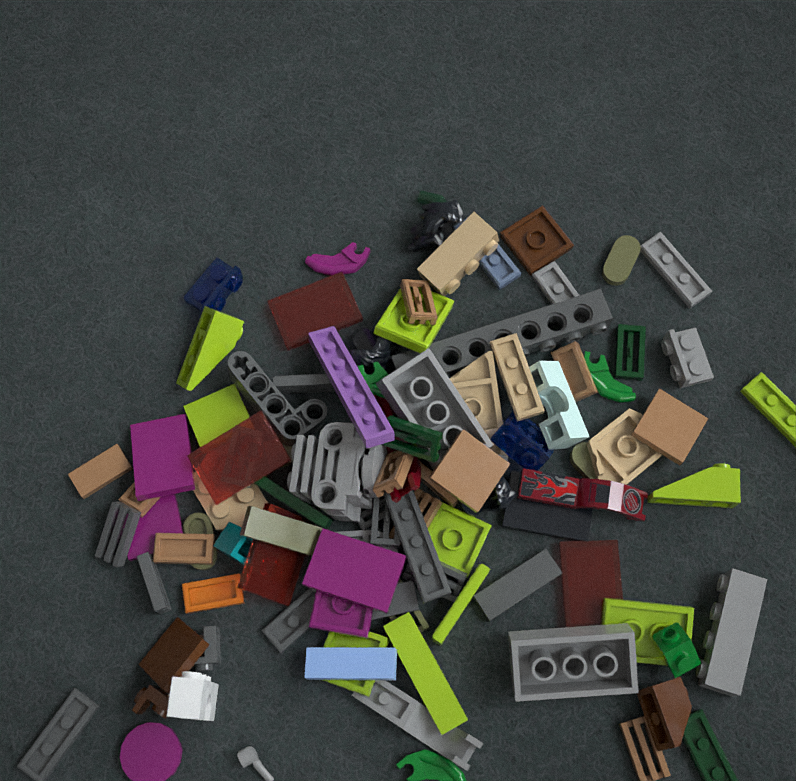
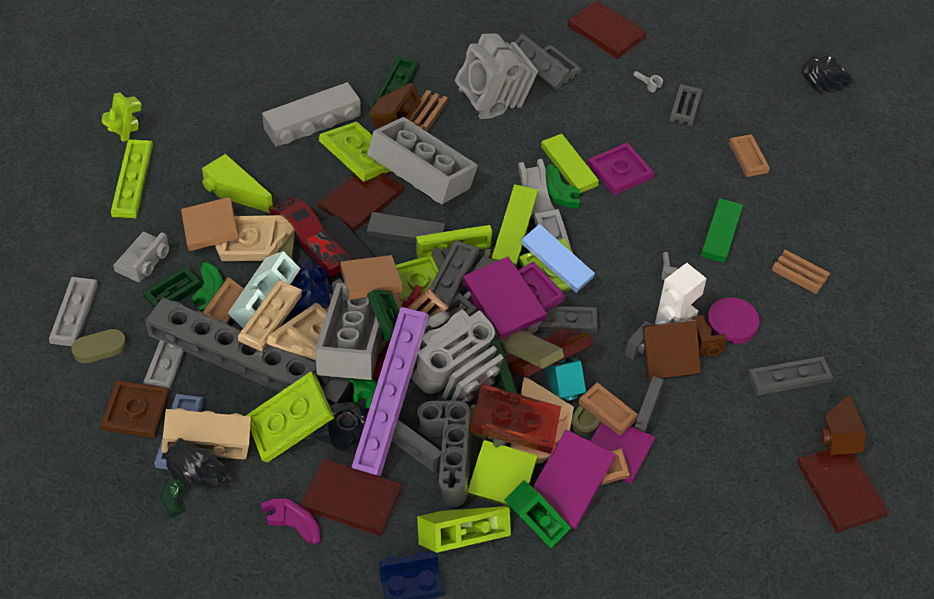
camera: 140 degrees left, 20 degrees down
(100, 471) = (626, 516): medium nougat tile -> none
(114, 531) = (664, 448): dark grey tile -> none
(164, 402) = (537, 513): none -> green slope
(212, 593) = (611, 375): orange tile -> none
(420, 315) = (278, 422): medium nougat tile -> none
(676, 649) = (354, 125): green bracket -> none

